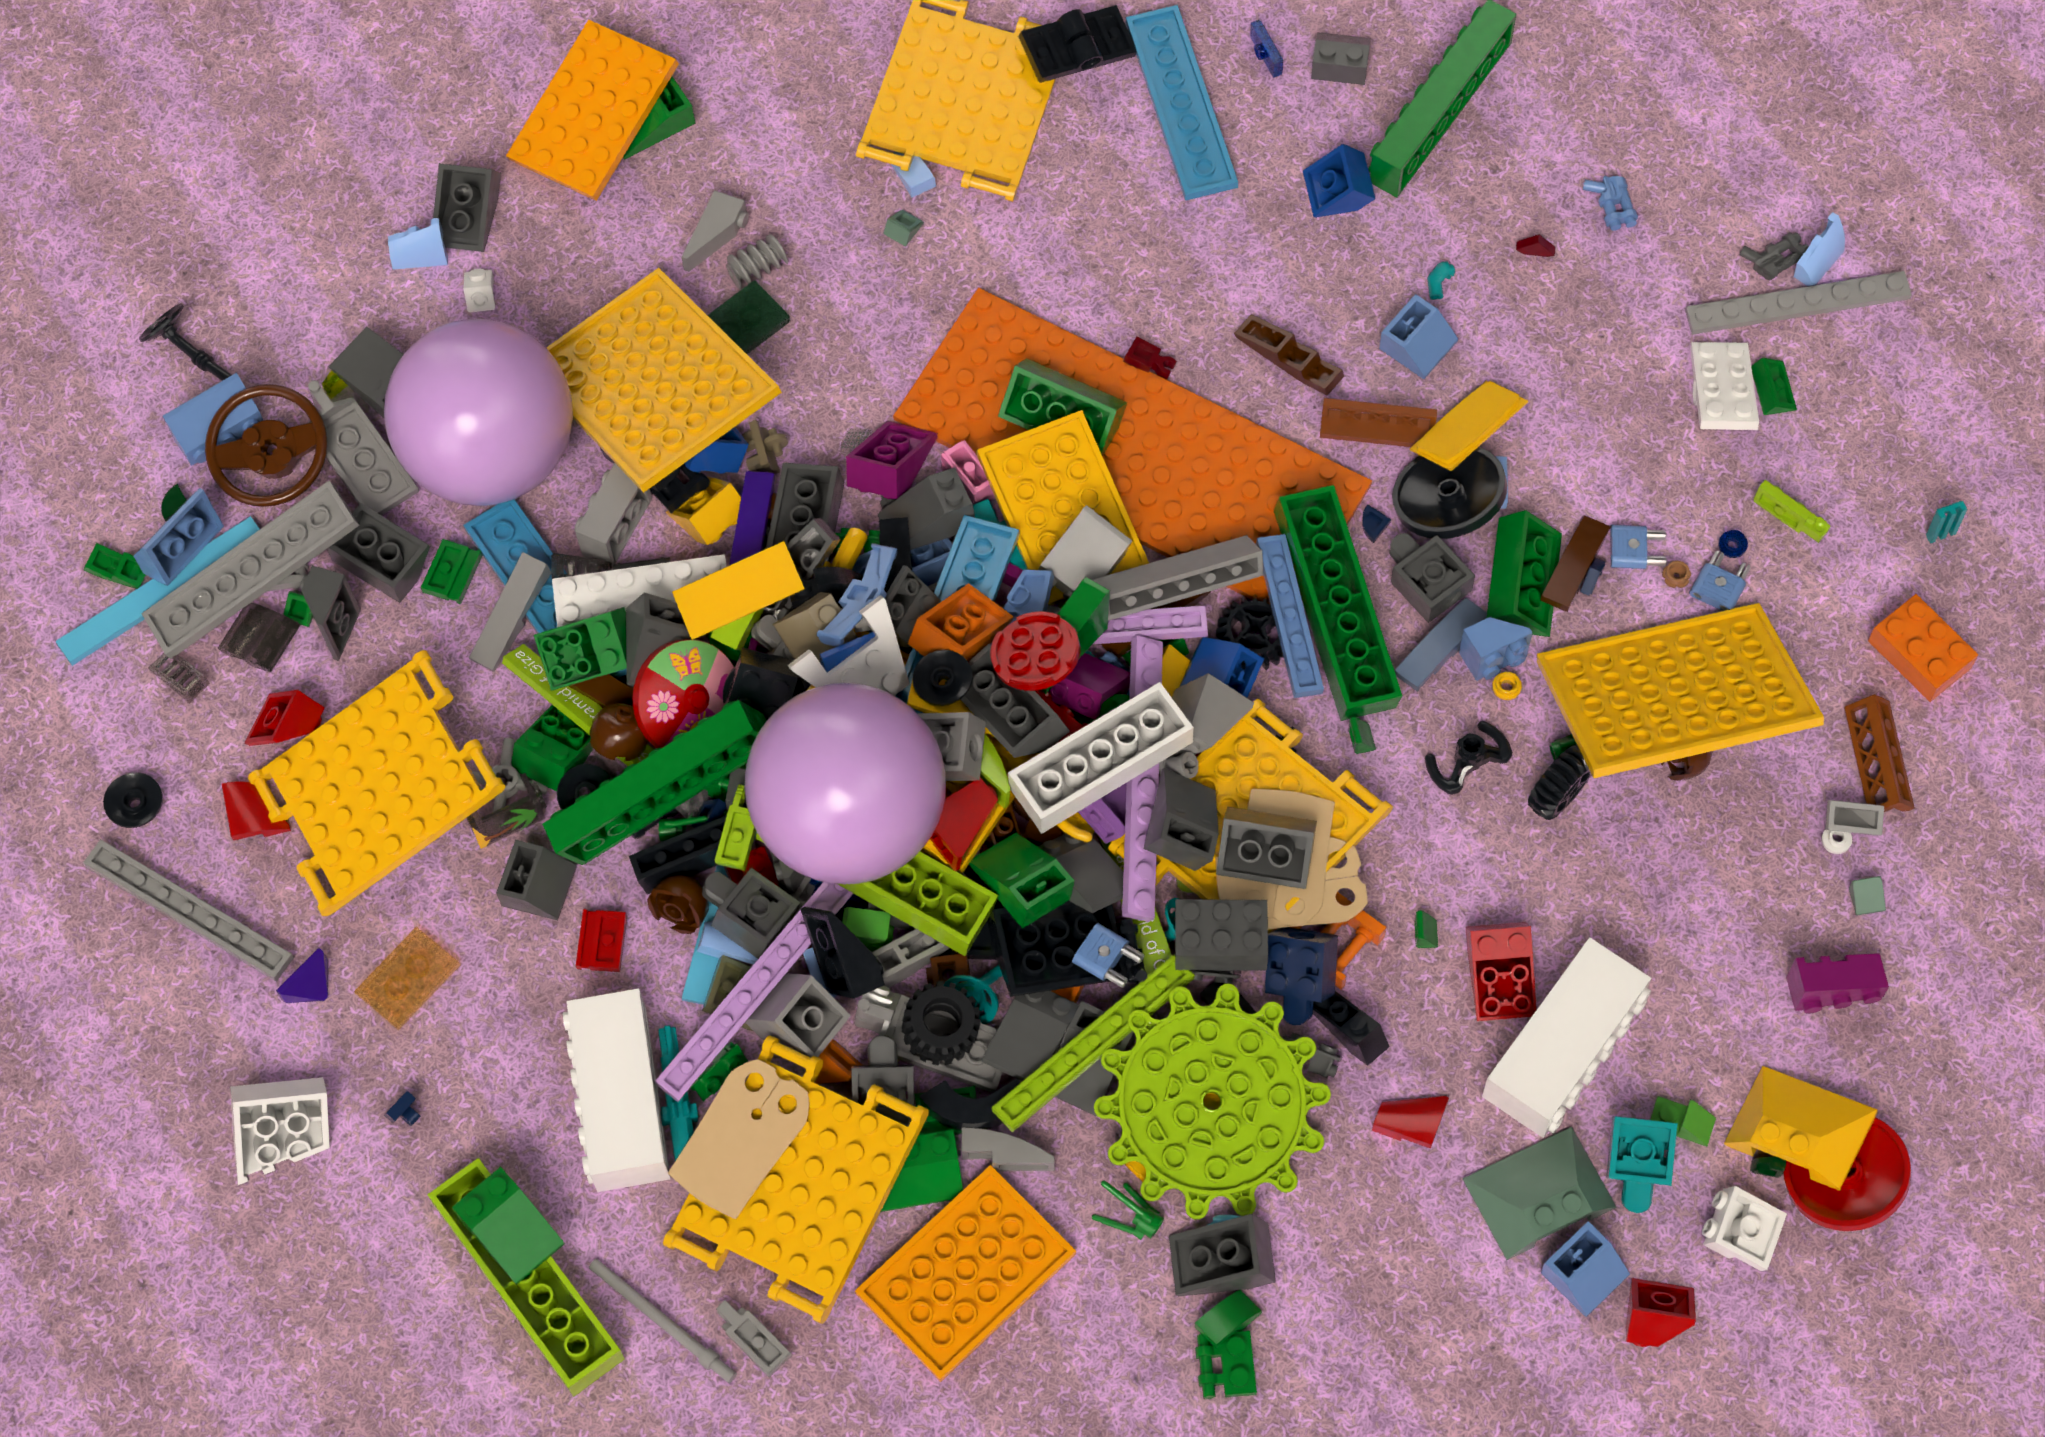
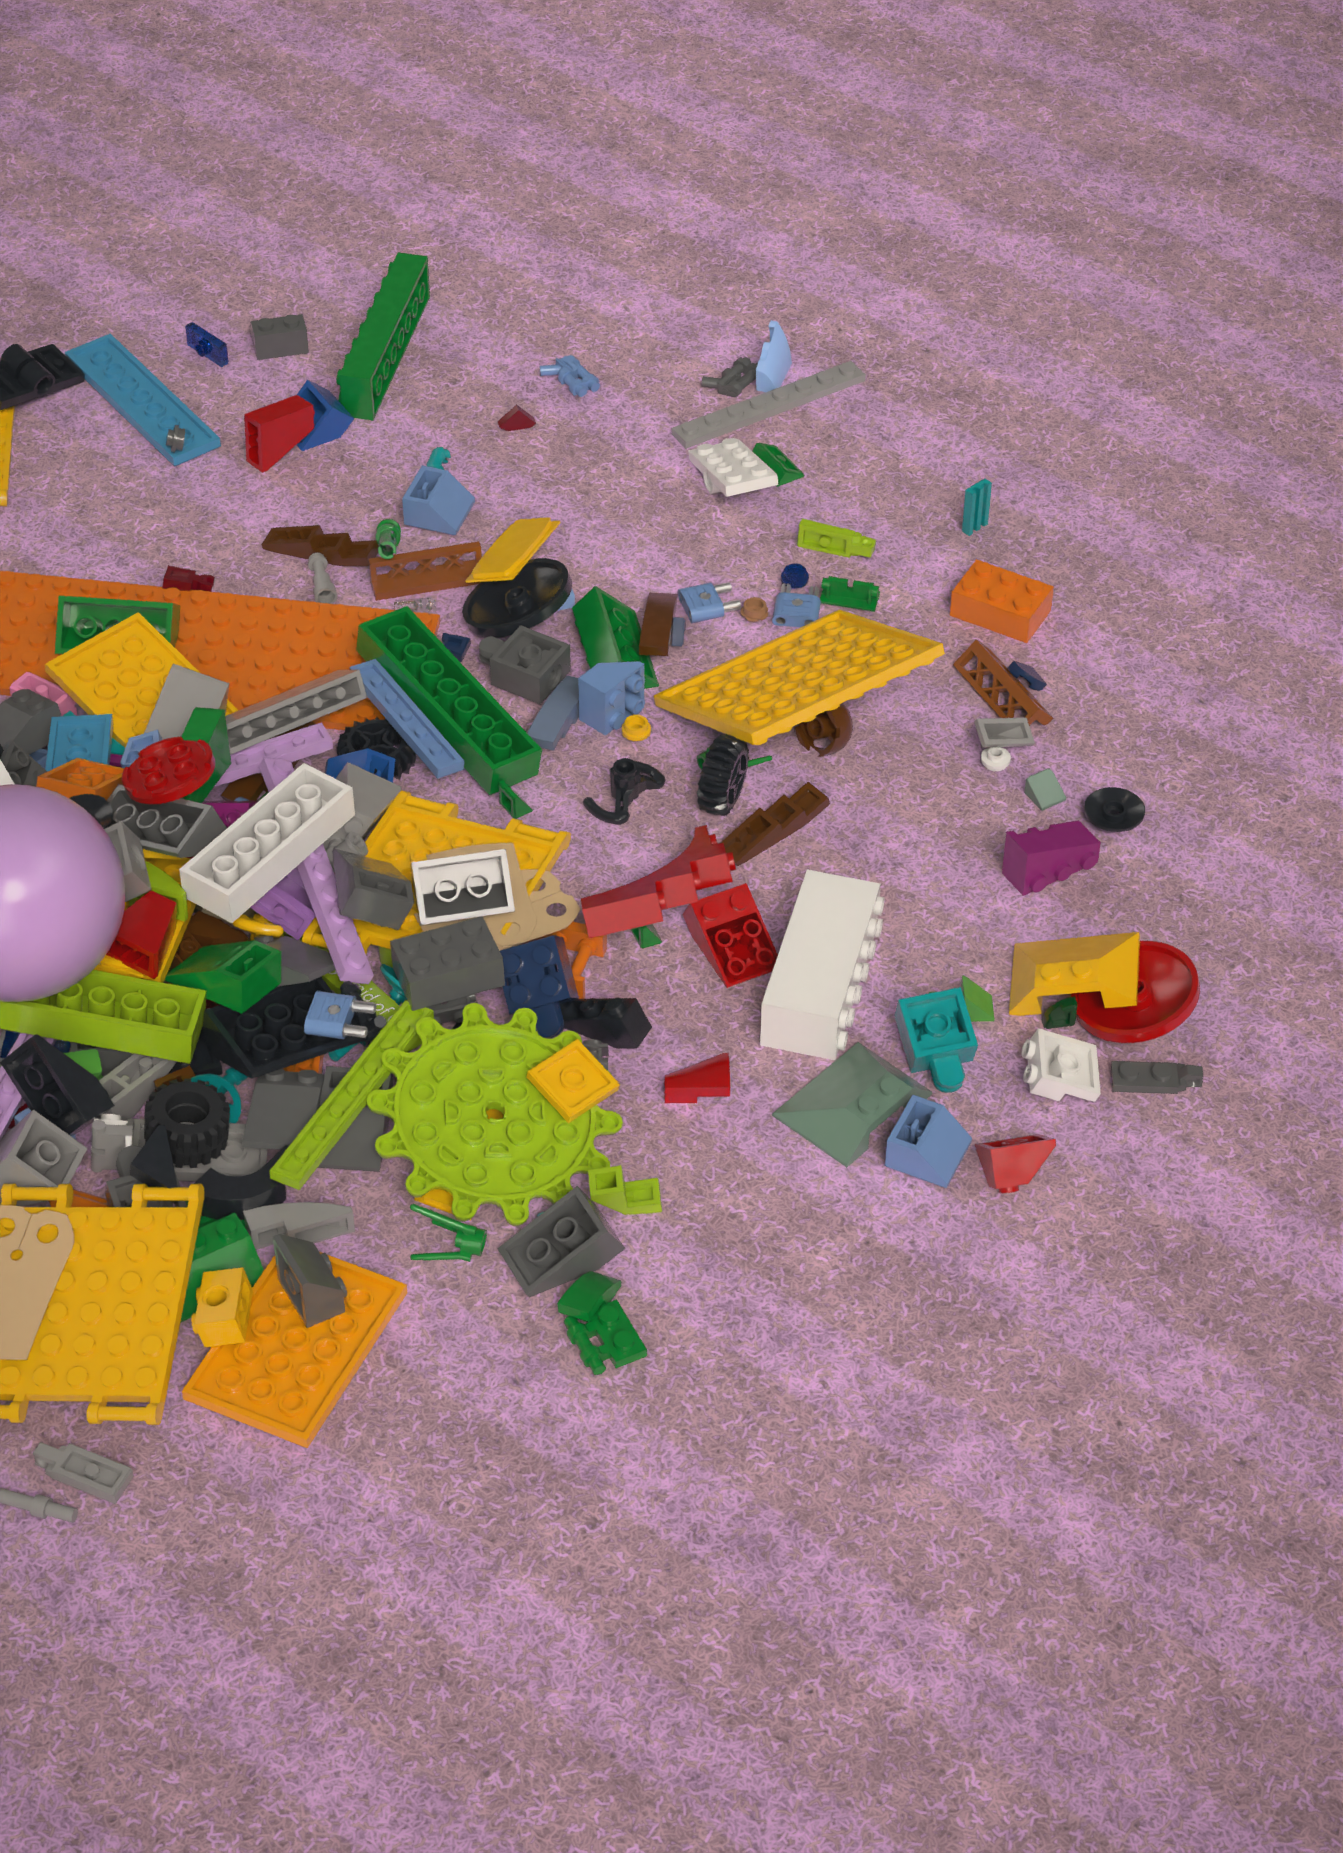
camera: 25 degrees left, 20 degrees down
(895, 1071) = (154, 1162): none -> black slope
(913, 1240) = (222, 1307): none -> yellow brick
(992, 1225) = (308, 1279): none -> dark grey slope
(1193, 176) = (175, 438): none -> dark grey plate
(1273, 413) = (324, 590): none -> light grey piece
(1292, 1092) = (573, 1080): none -> yellow tile
(1293, 196) = (276, 430): none -> red slope
(1299, 1224) = (628, 1198): none -> lime slope
(1353, 370) = (386, 538): none -> green pin
(1361, 465) = (420, 605): none -> clear arm
(1462, 908) = (675, 884): none -> red arch
(1591, 848) = (776, 823): none -> reddish brown slope
(1777, 586) = (860, 596): none -> green hinge
(1826, 1265) = (1154, 1077): none -> dark grey hinge
(1912, 747) = (1028, 672): none -> dark blue tile
(1928, 933) = (1114, 809): none -> black dish

